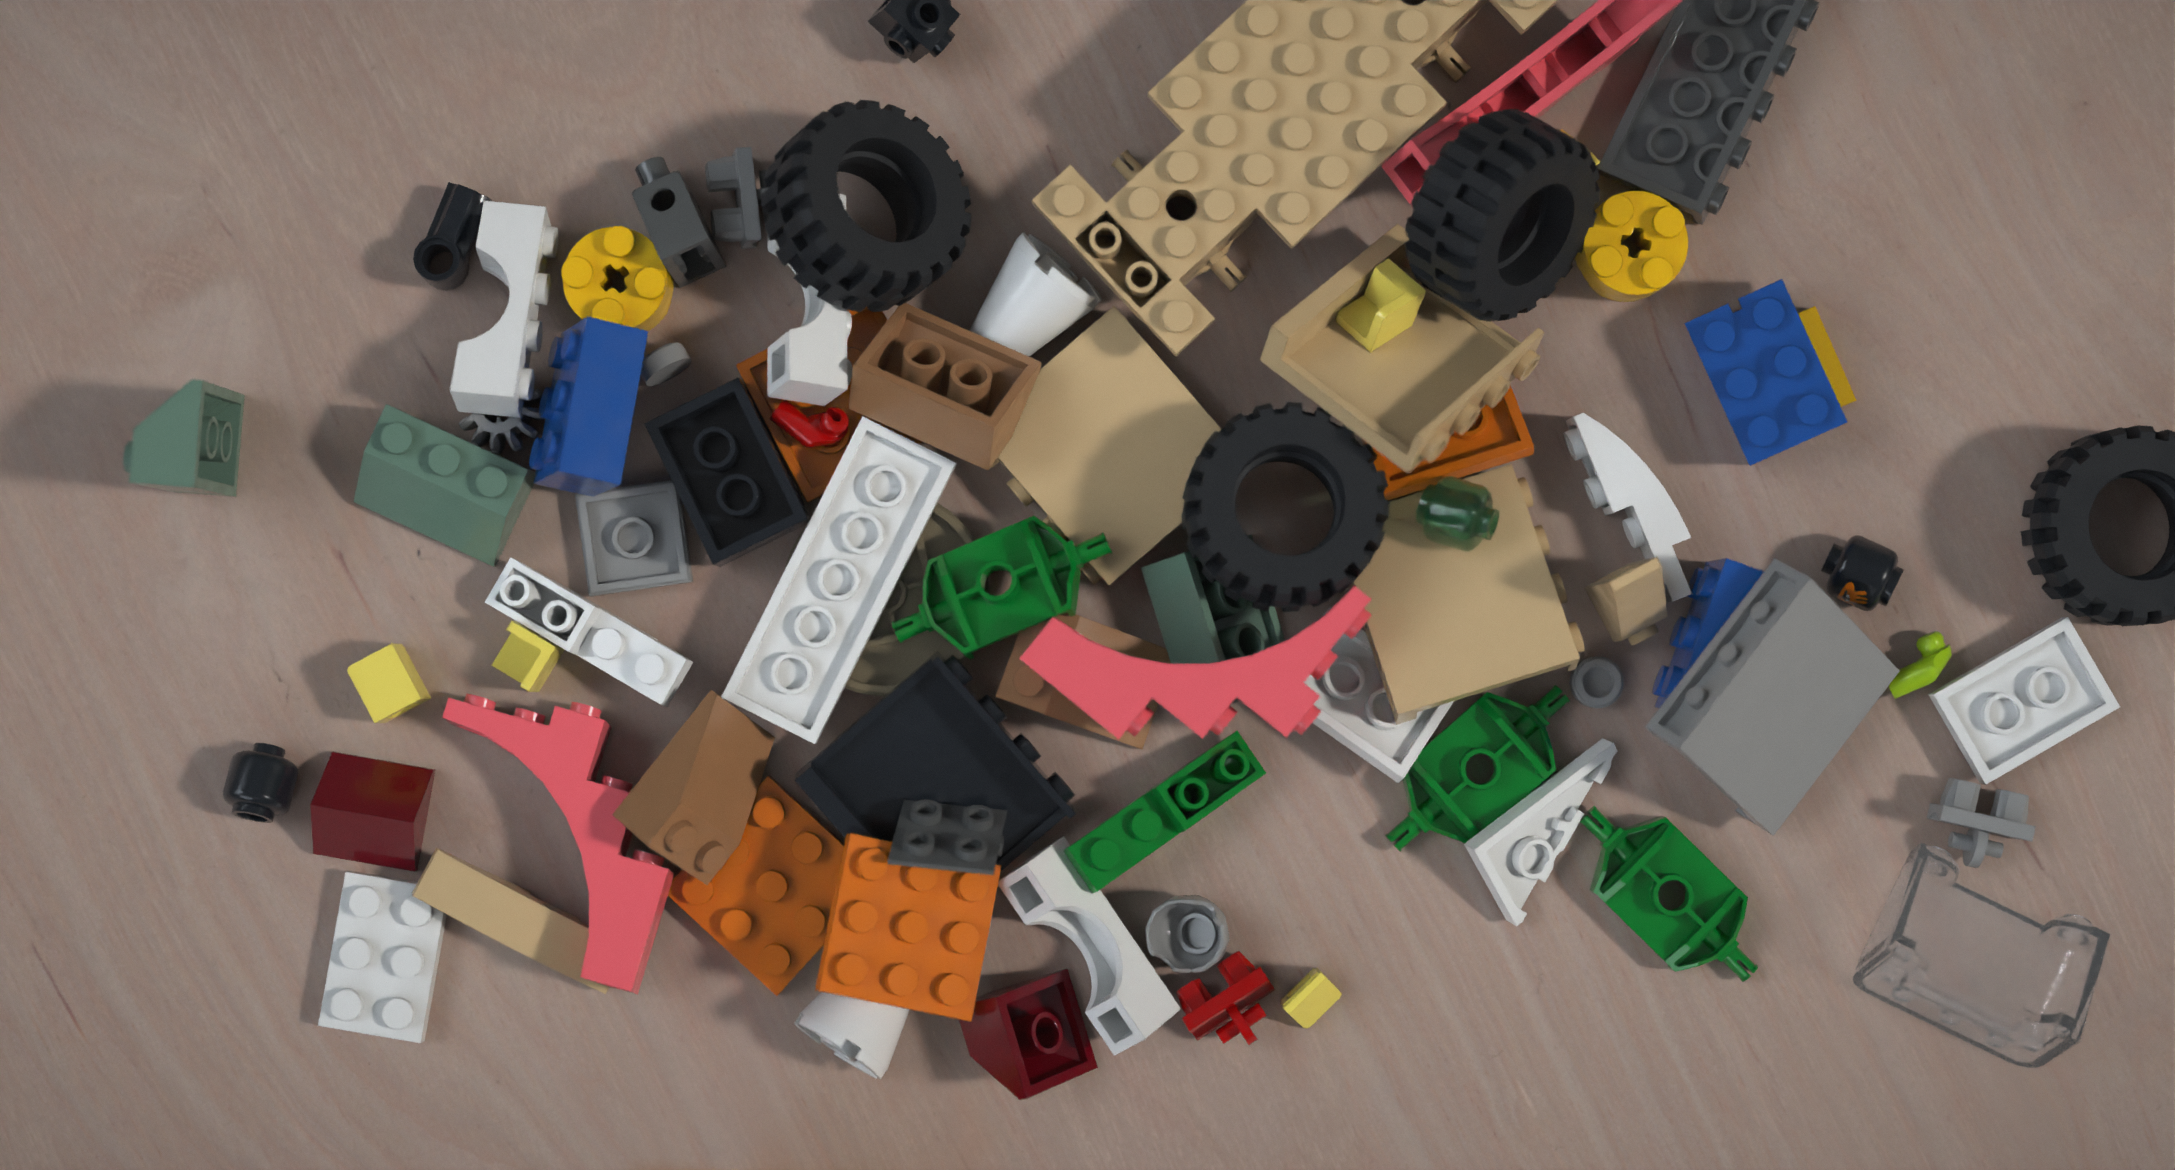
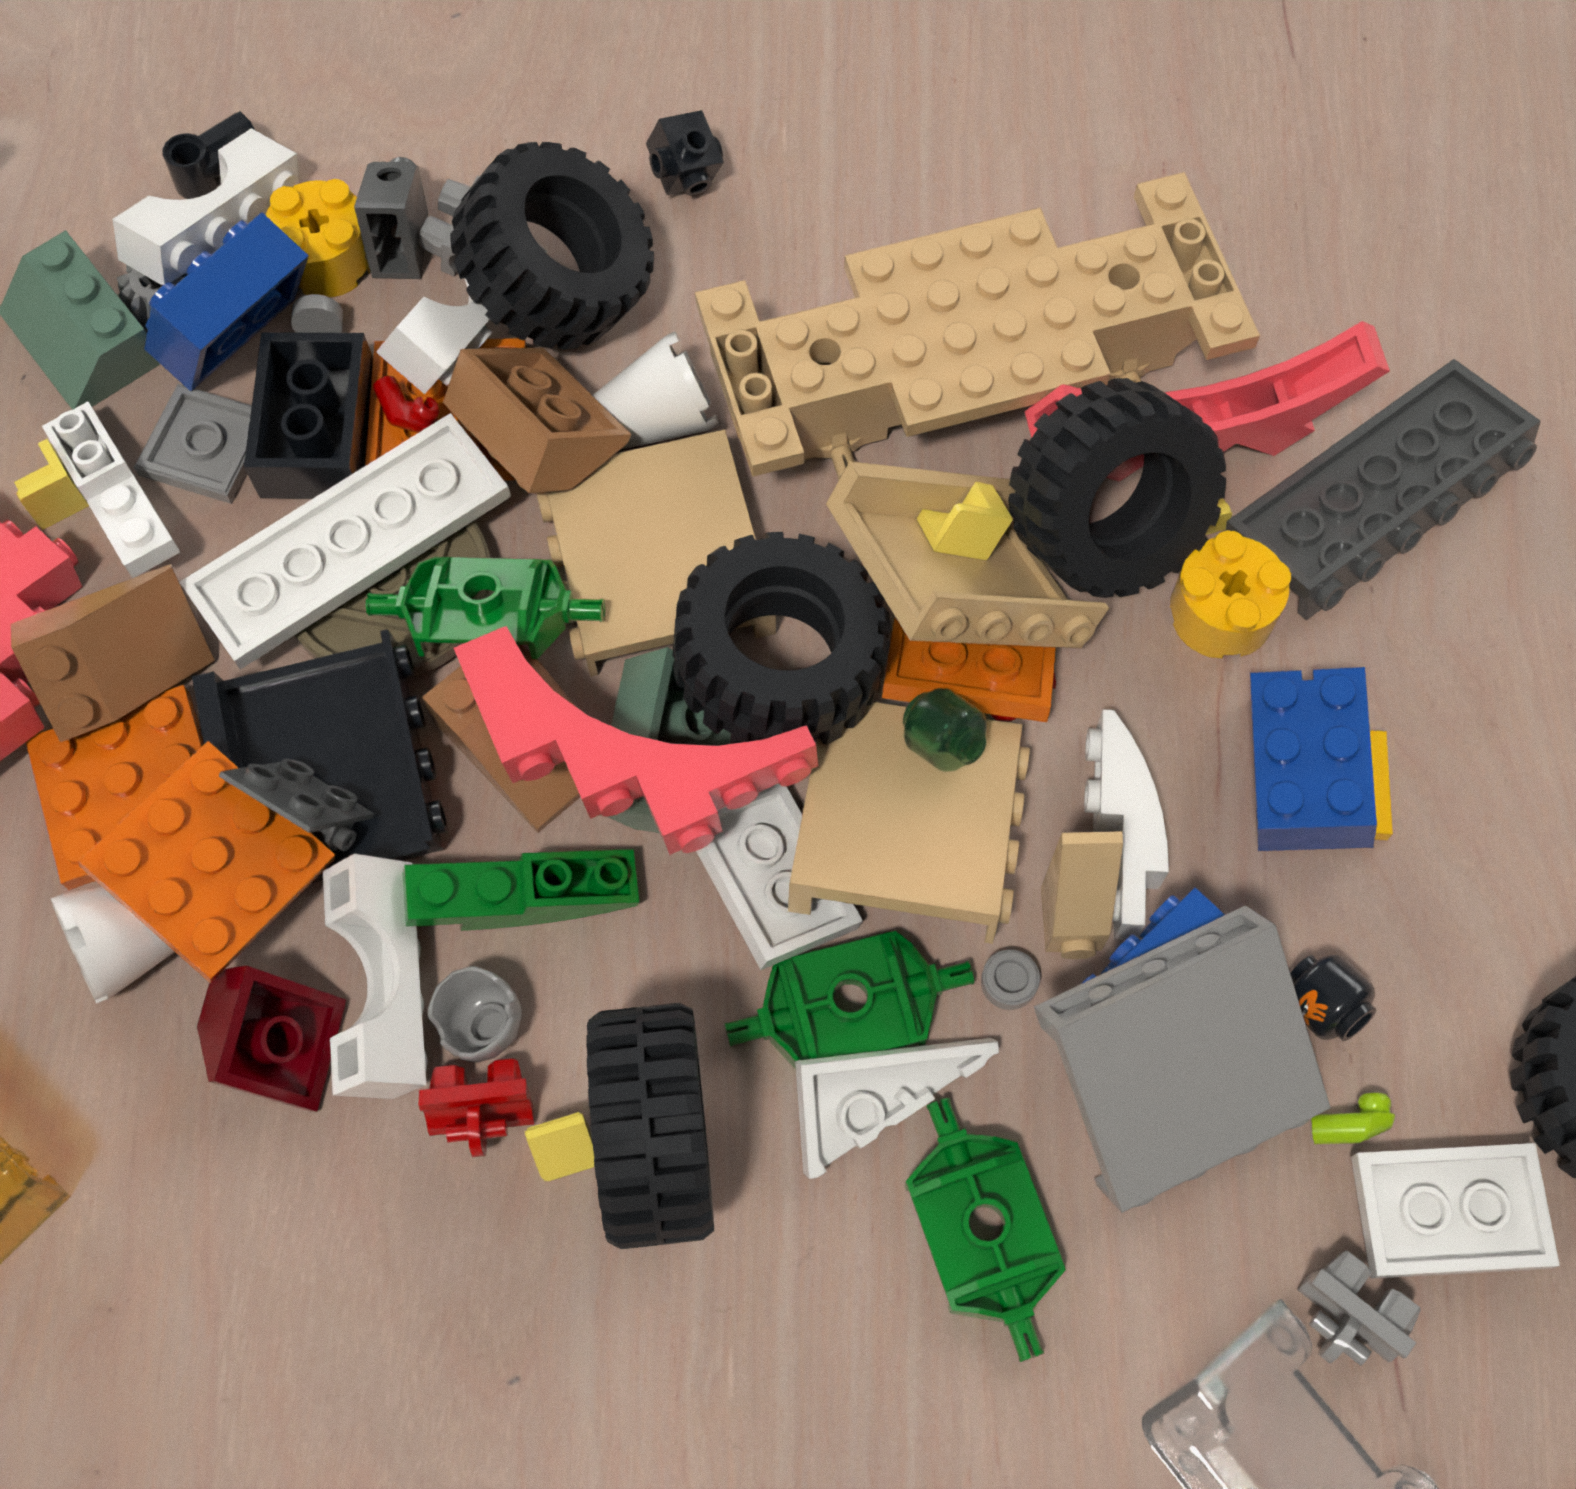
camera: 30 degrees right, 20 degrees down
(1392, 963) = (648, 1126): none -> black tyre

